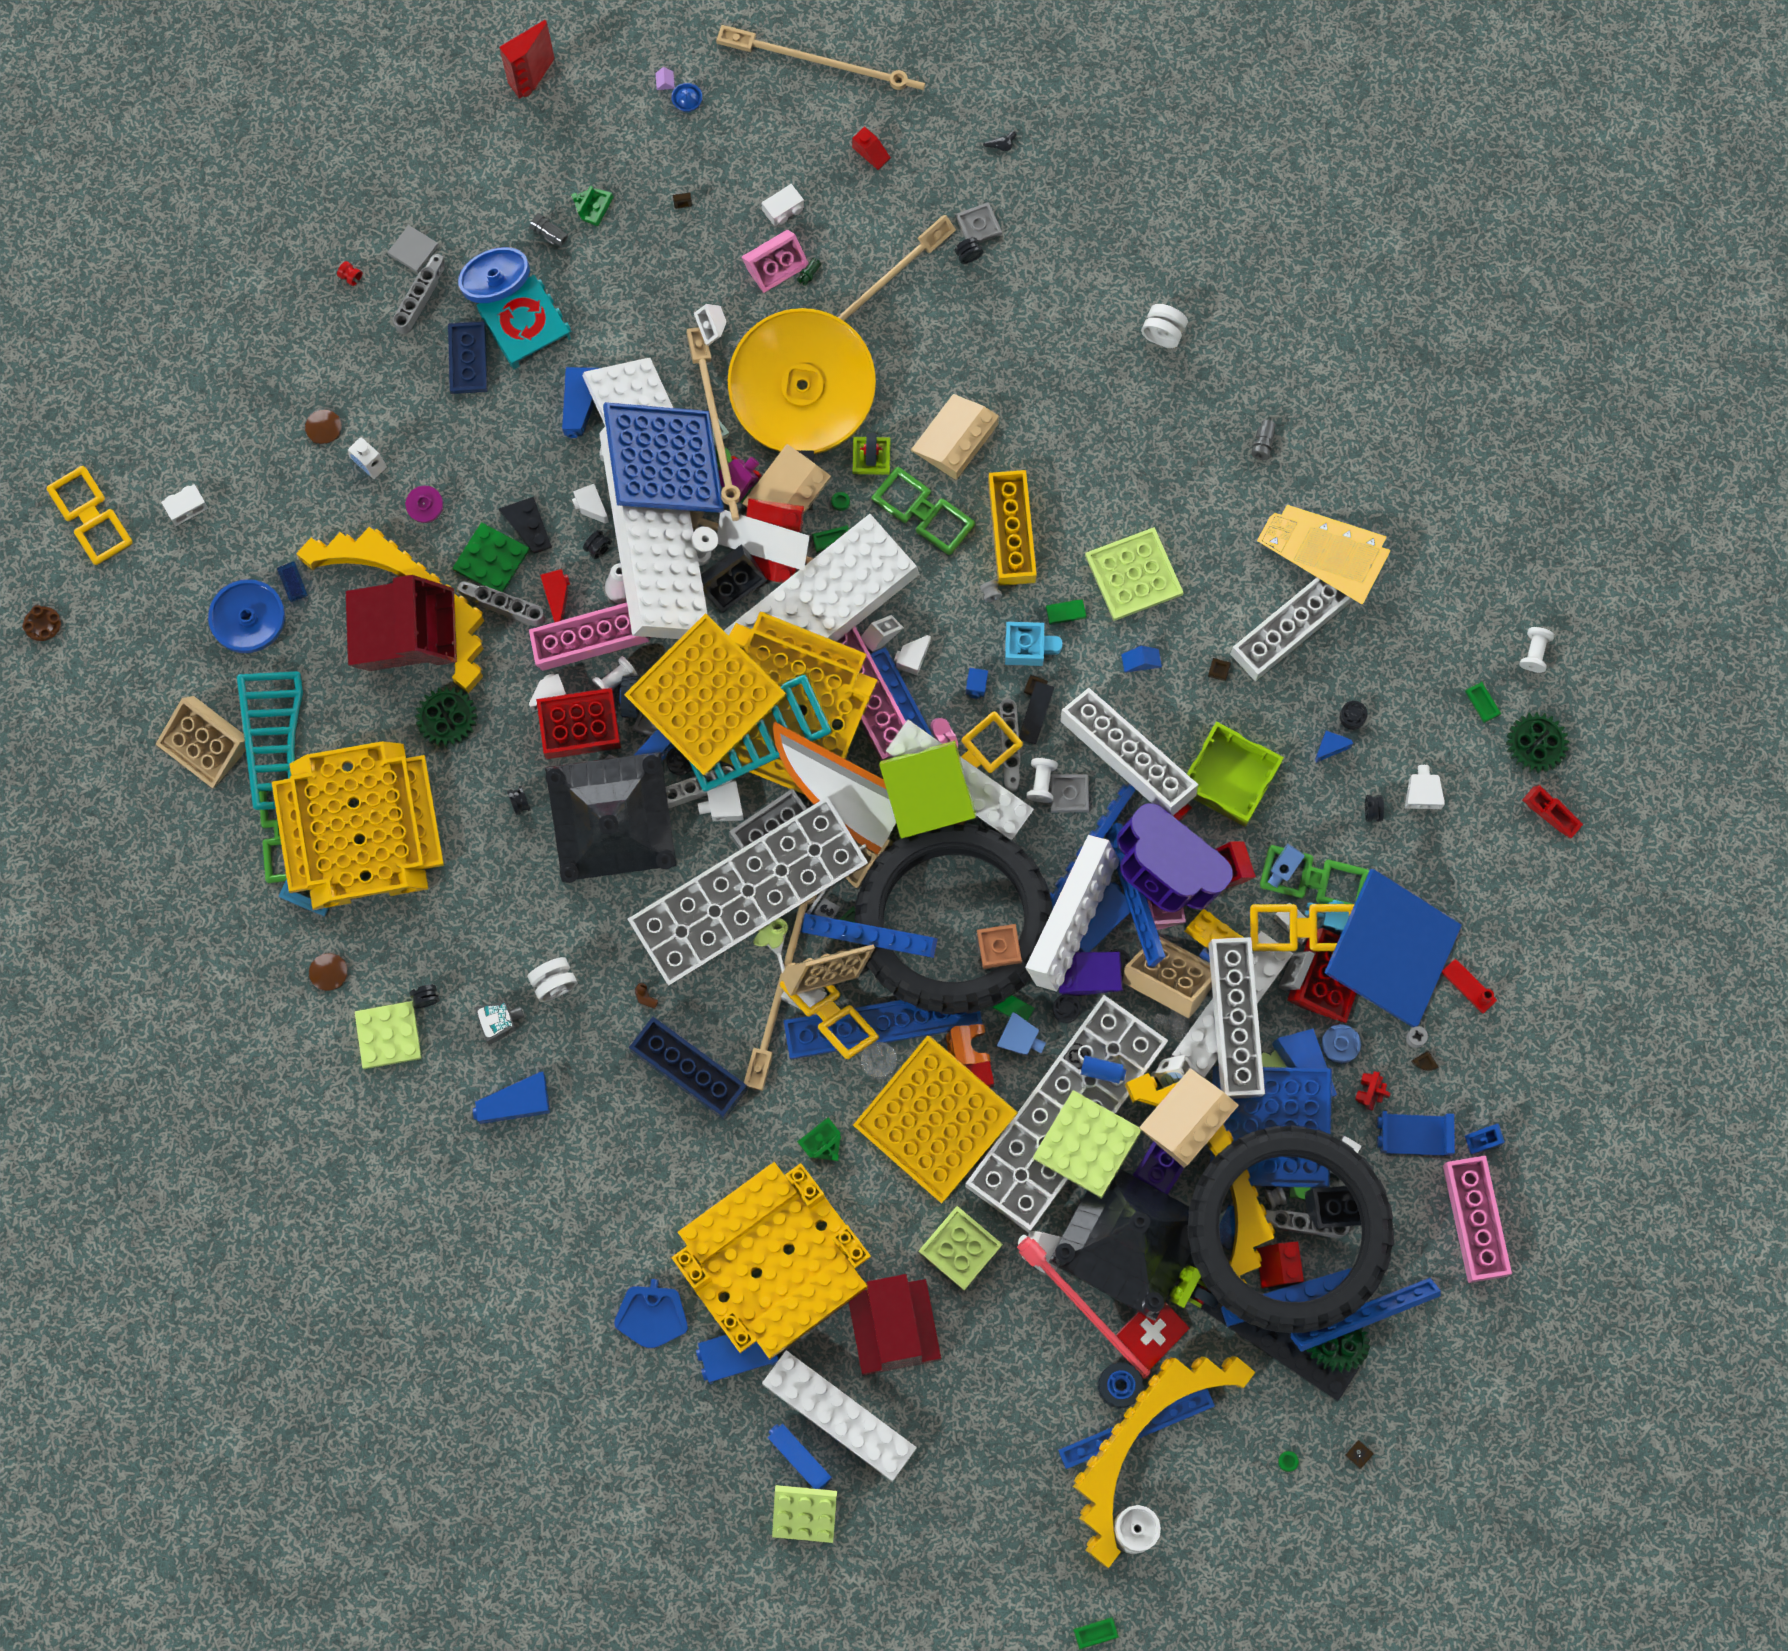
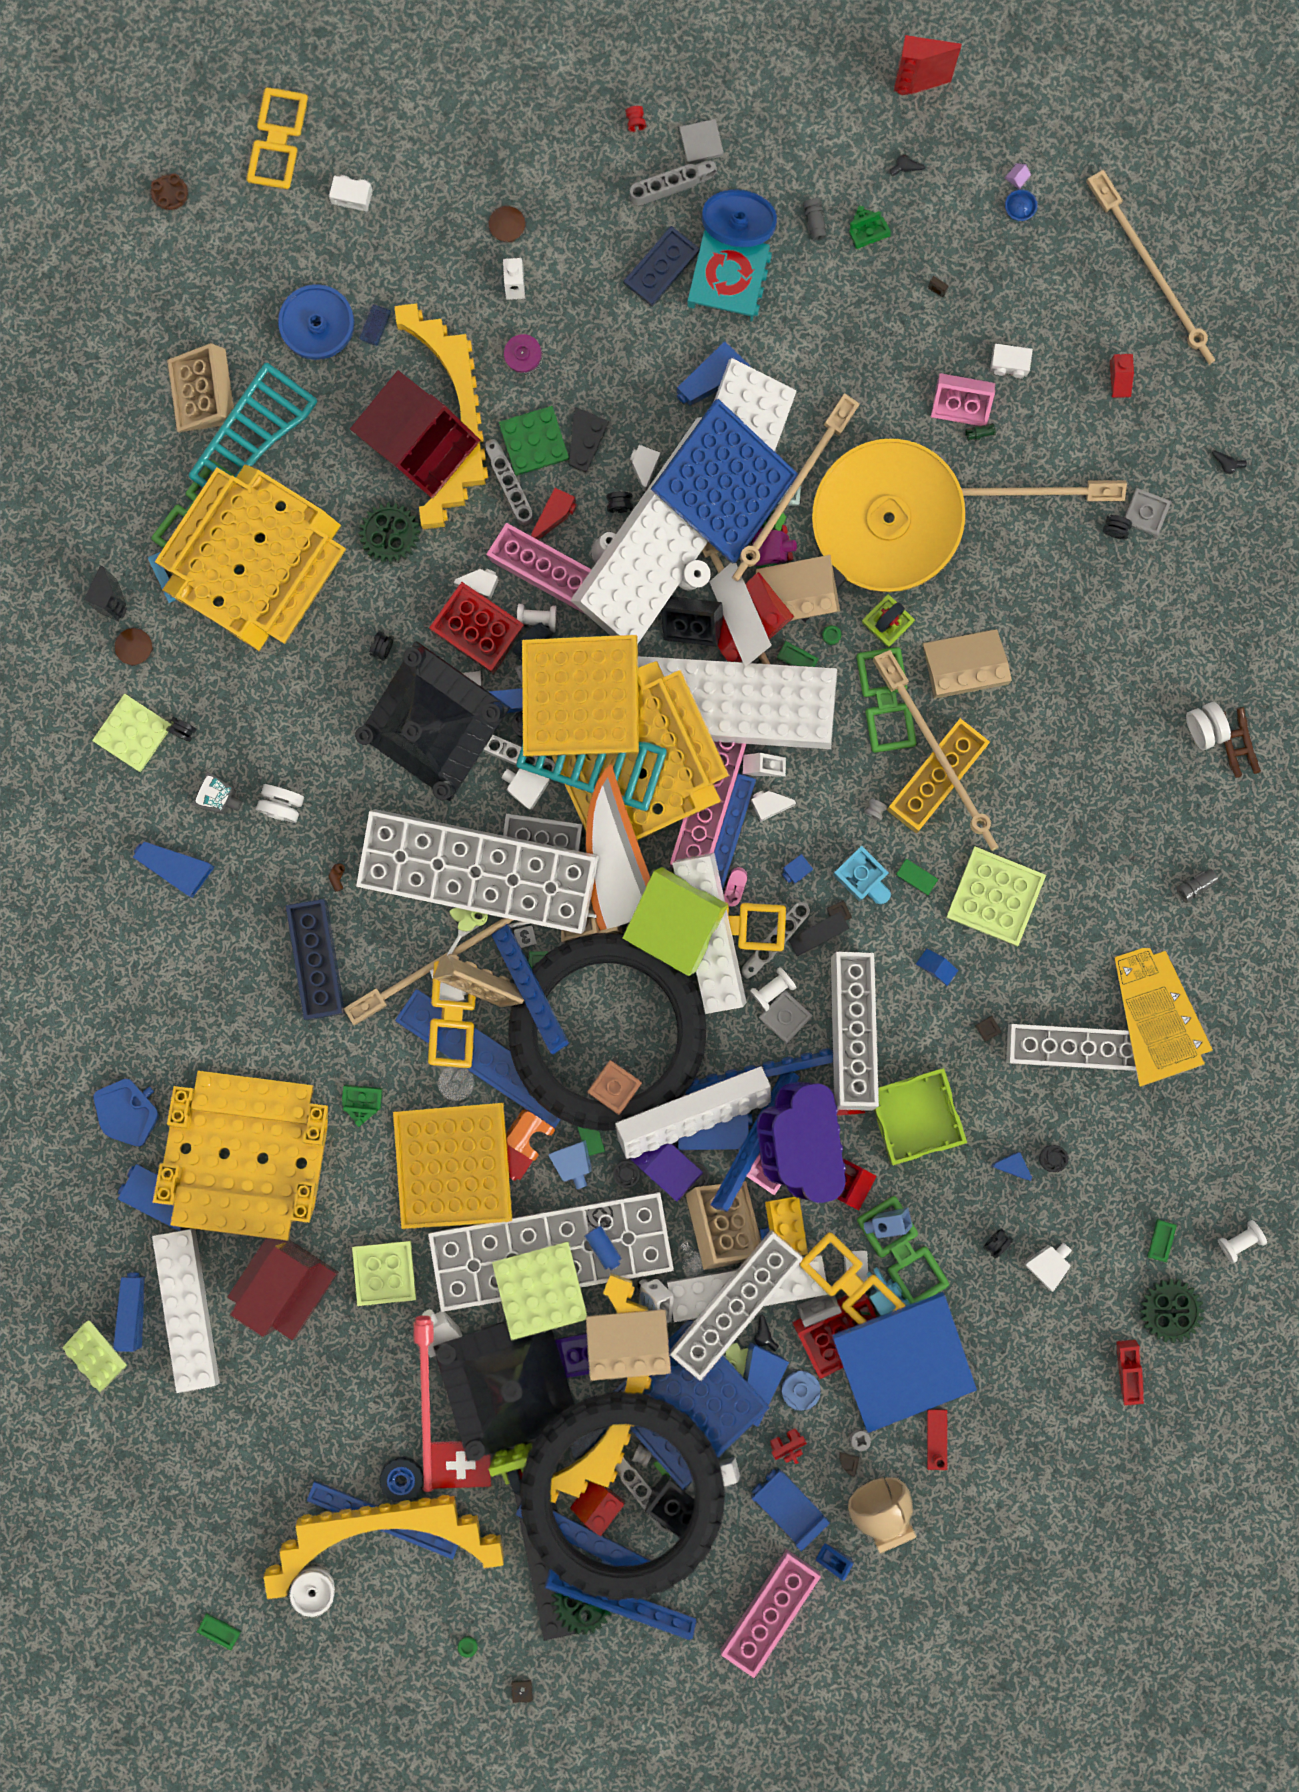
camera: 45 degrees right, 10 degrees up
(276, 948) = (106, 595): none -> black slope
(577, 140) = (906, 164): none -> black animal
(711, 322) = (866, 405): white slope -> none
(918, 488) = (896, 679): none -> tan bar
(1206, 319) = (1248, 749): none -> reddish brown piece
(1276, 1029) = (763, 1335): none -> black animal
(1490, 1074) = (881, 1515): none -> tan plate

